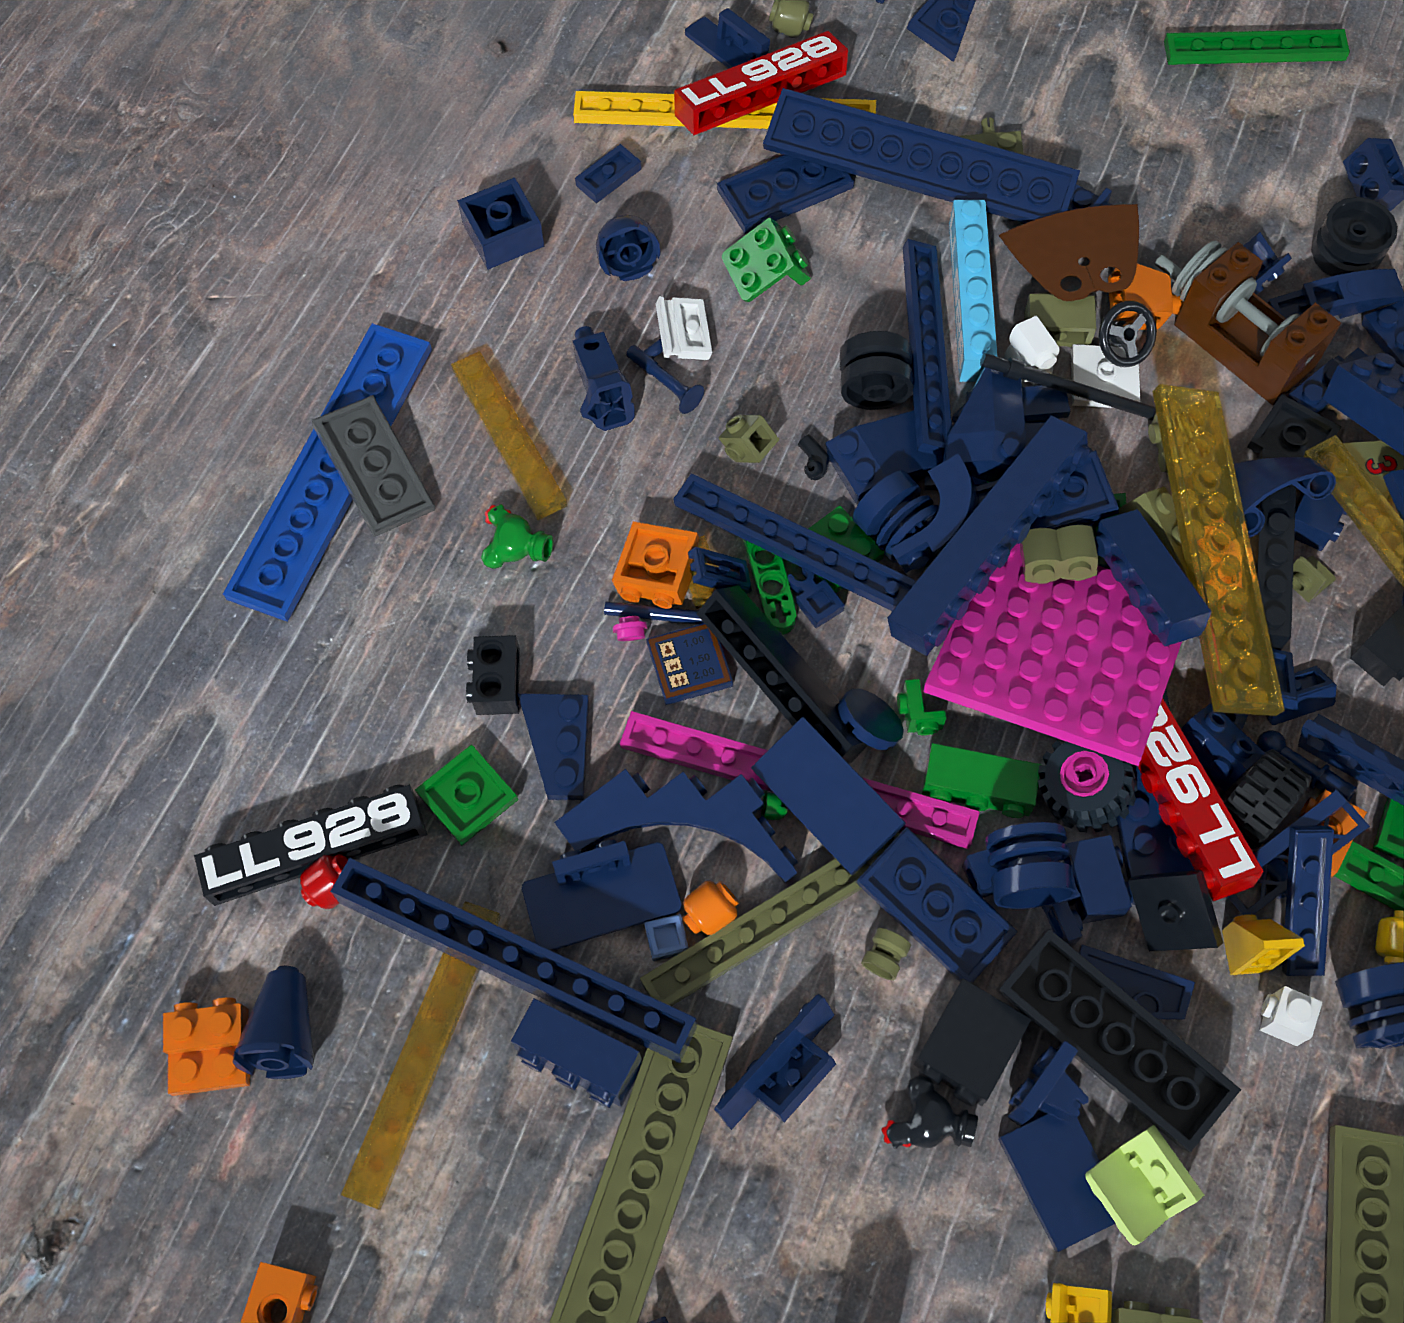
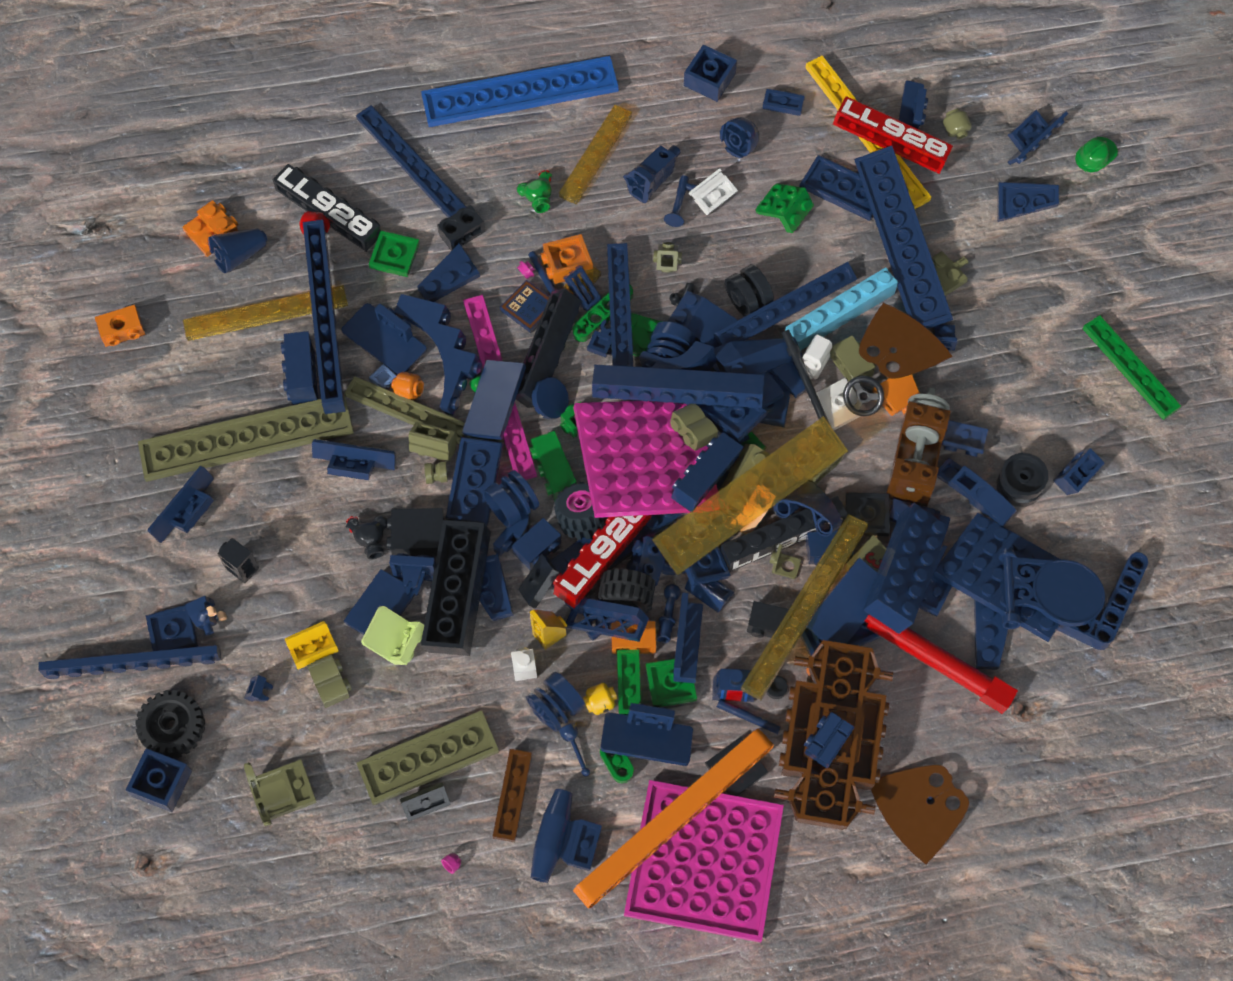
camera: 55 degrees right, 0 degrees up
(325, 680) = (410, 161): none -> dark blue tile
(373, 465) = (531, 107): dark grey tile -> none
(835, 926) = (432, 441): none -> olive brick
(1308, 897) = (584, 637): dark blue tile -> none

